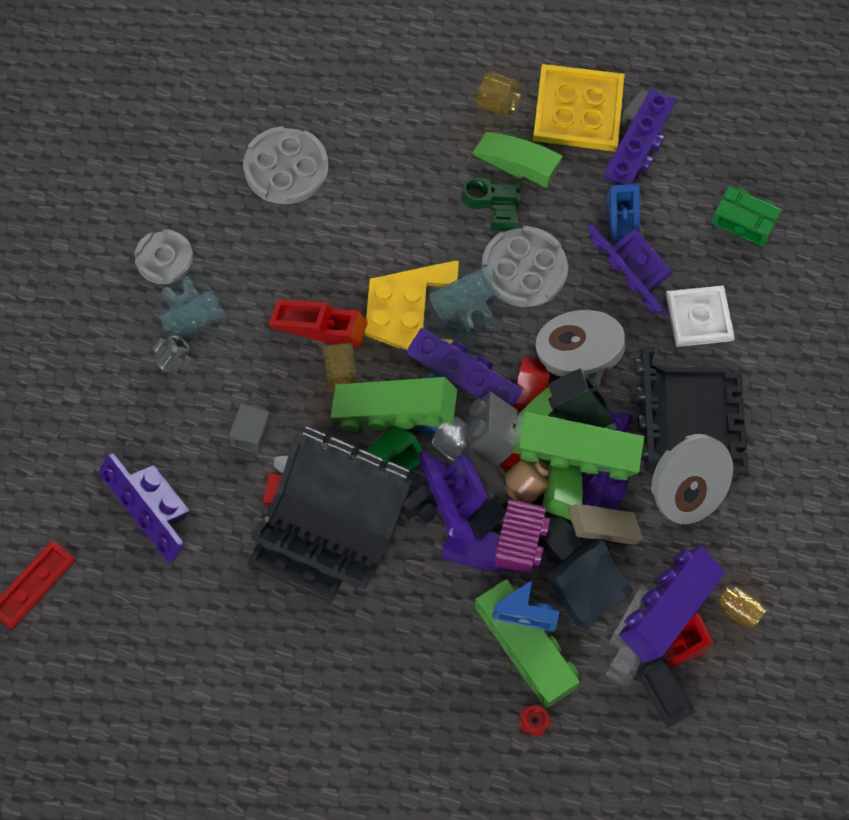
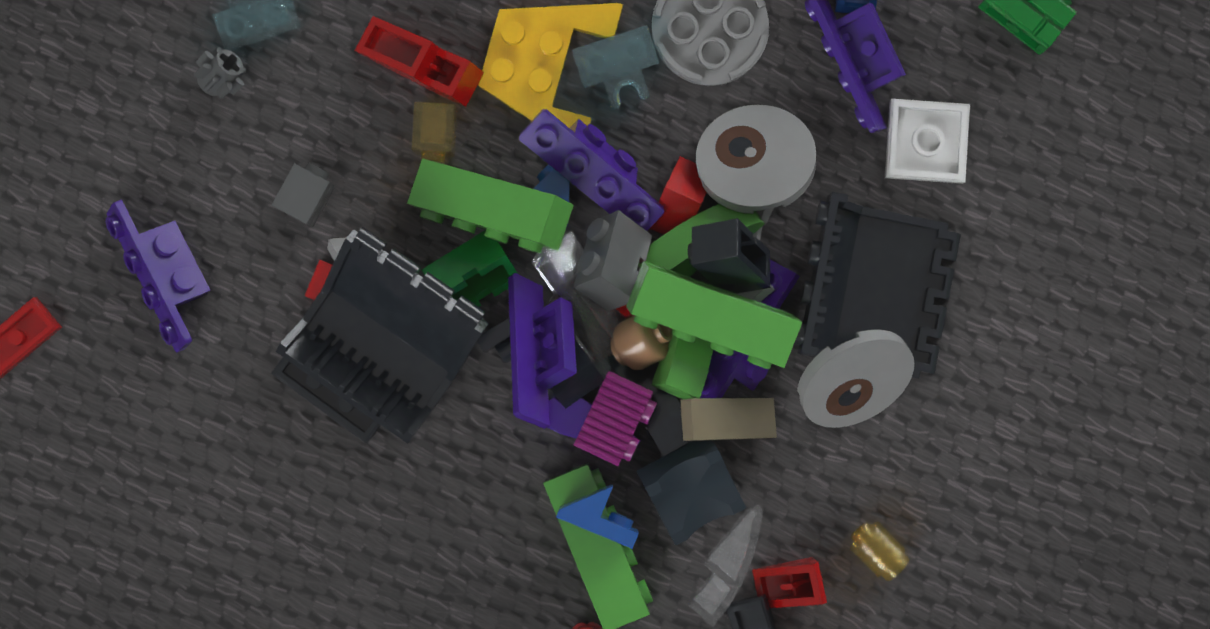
camera: 20 degrees right, 20 degrees up
(671, 603) = (788, 539): dark purple brick -> none

